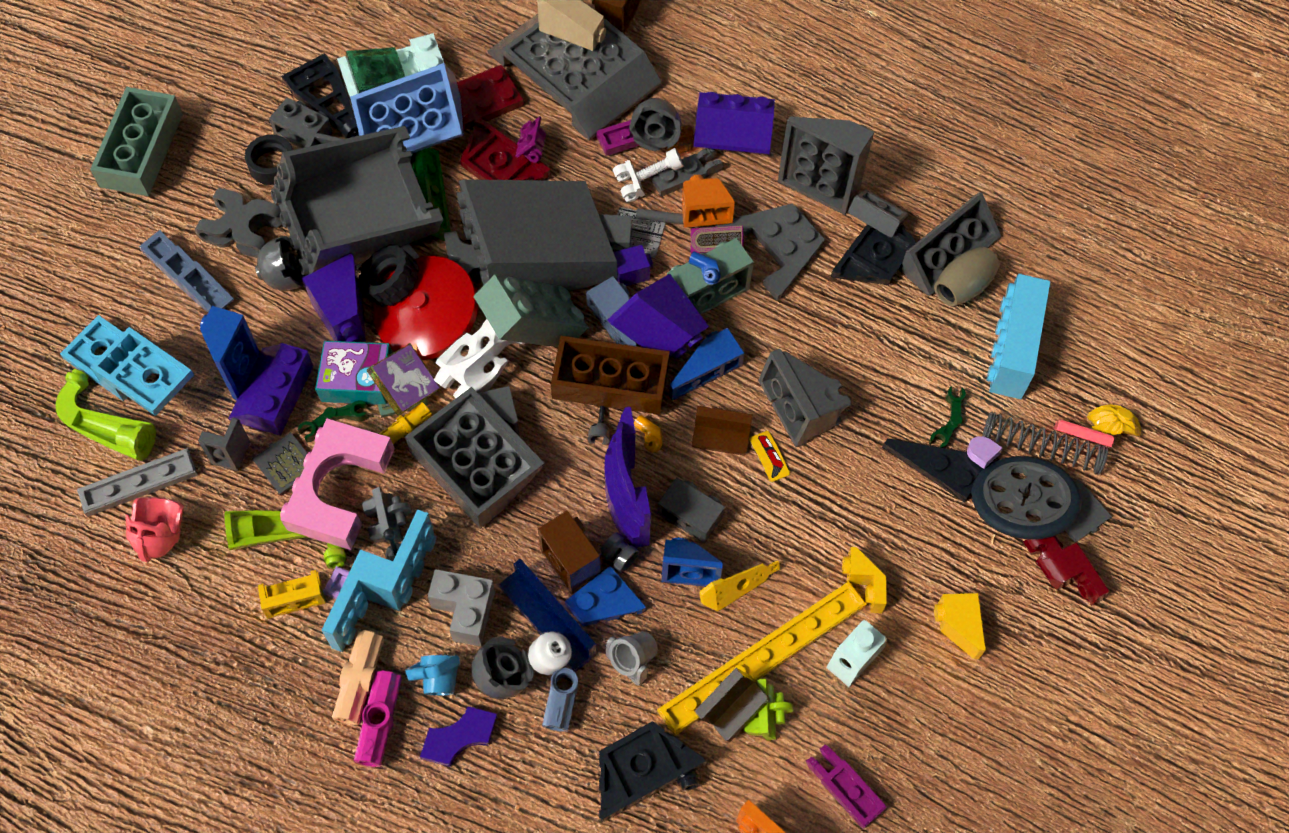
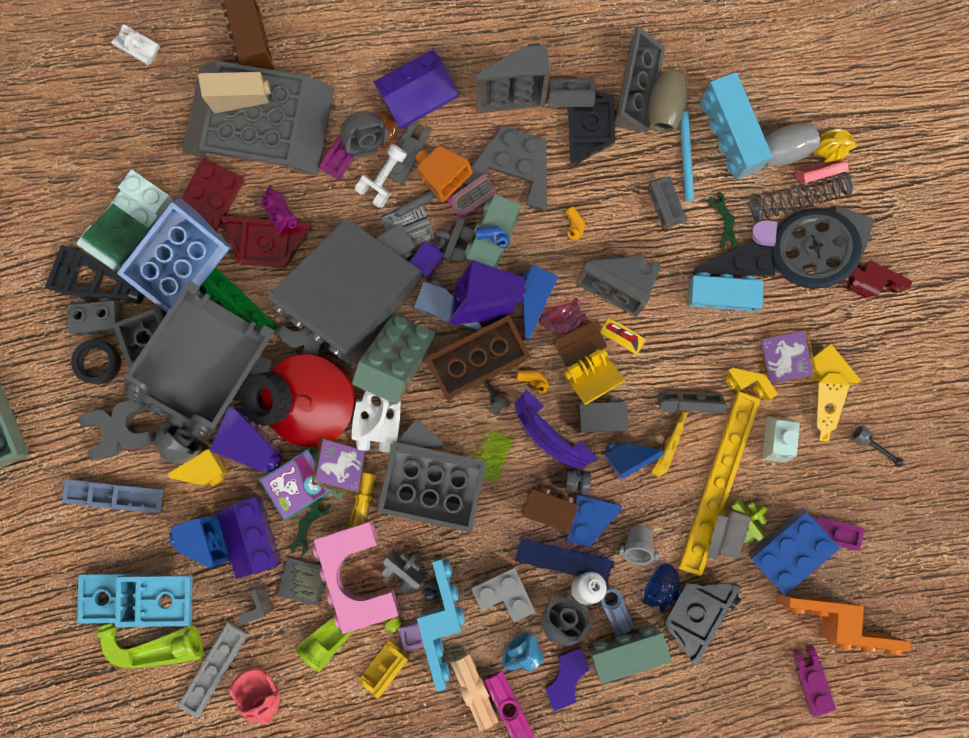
camera: 35 degrees left, 20 degrees up
(281, 302) = (202, 470): none -> yellow slope
(538, 745) = (629, 653): none -> sand green brick
(557, 477) = (495, 455): none -> clear neon green tile
(625, 714) = (662, 587): none -> clear blue hat
(666, 261) = (460, 231): none -> dark grey hips
(710, 466) = (593, 376): none -> yellow hinge
(722, 397) = (563, 318): none -> clear pink hat
(790, 769) = (793, 551): none -> blue brick
(791, 556) = (691, 401): none -> dark grey hinge
(798, 329) = (577, 224): none -> light orange arm
(901, 480) = (725, 292): none -> medium azure brick
(903, 364) = (666, 203): none -> dark grey hinge
(924, 579) = (788, 356): none -> tile
(939, 643) = (833, 396): none -> yellow piece
(952, 716) = (864, 436): none -> hinge
(953, 339) = (686, 157): none -> medium azure bar
(1064, 387) = (792, 143): none -> light grey piece

